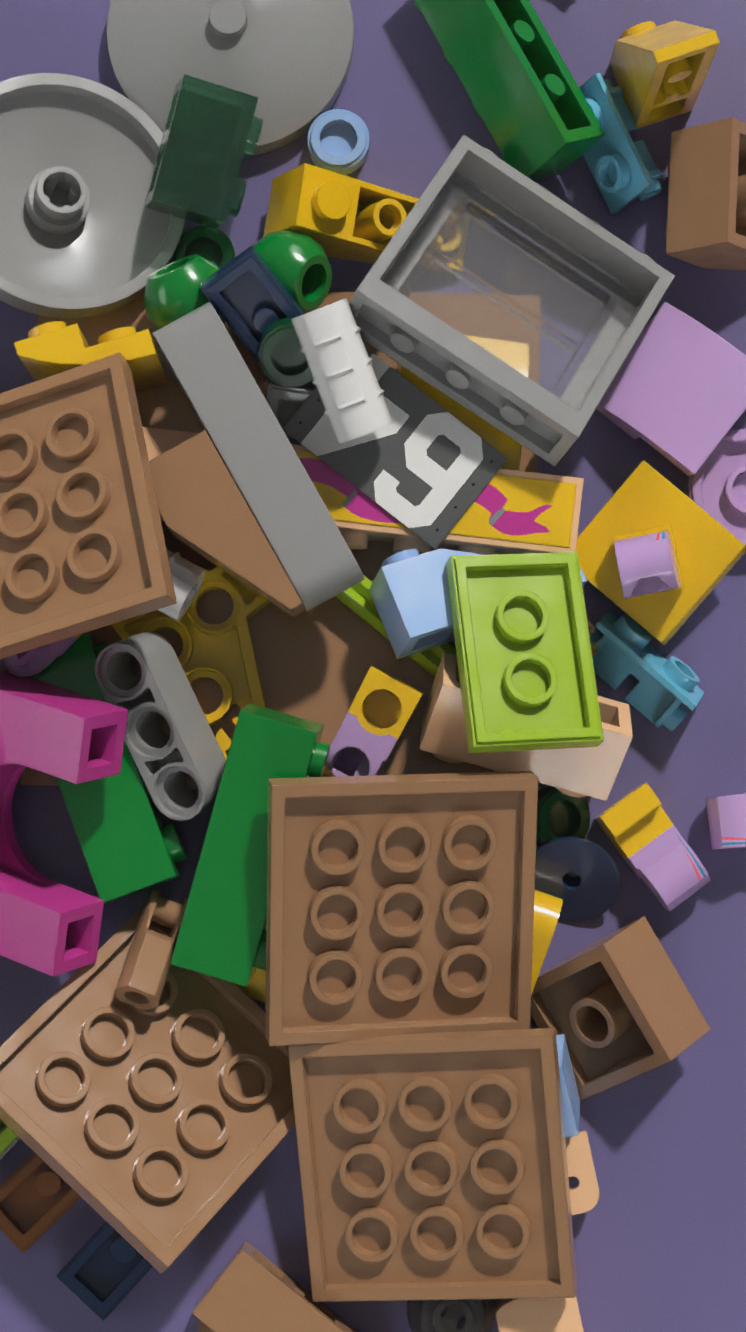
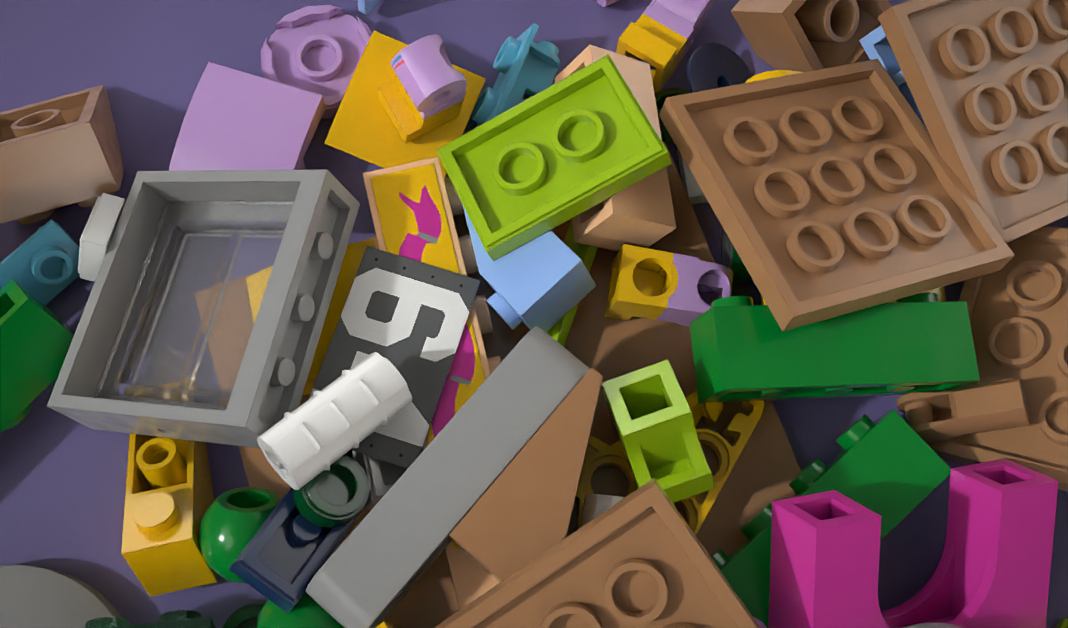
camera: 110 degrees left, 10 degrees down
(168, 692) = (783, 466): light grey beam -> none
(232, 648) = (658, 431): none -> lime brick
(338, 141) = (90, 547): light blue tile -> none
(623, 224) = (98, 234): none -> white tile

